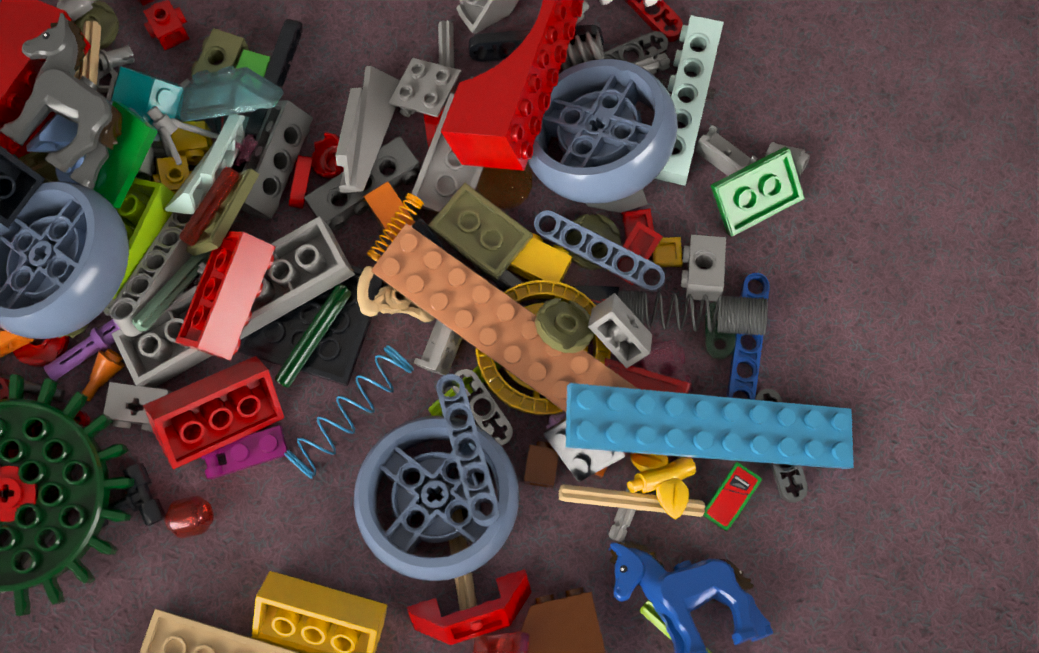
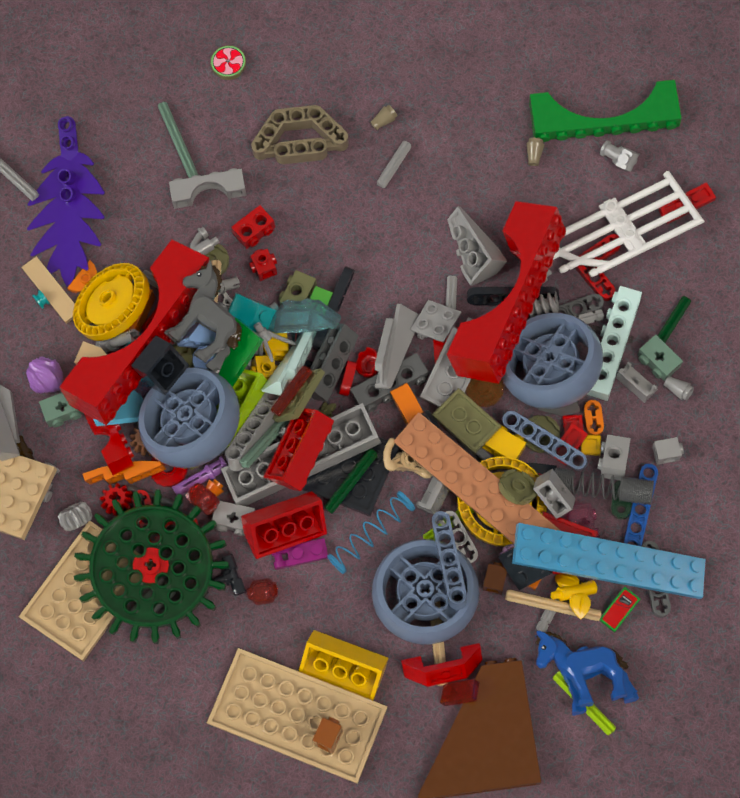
camera: 10 degrees right, 5 degrees down
(84, 382) = (202, 498): none -> clear red gear
(246, 149) = (313, 353): clear pink plant -> none
(272, 231) = (327, 409): none -> olive plant
(412, 199) = (425, 398): light orange piece -> none
(661, 213) = (589, 418): none -> orange beam
(752, 103) = (658, 349): none -> sand green brick
(758, 191) = (655, 409): tile -> none
(769, 61) = (674, 318): none -> dark green axle
(780, 251) = (667, 450): none -> light grey brick

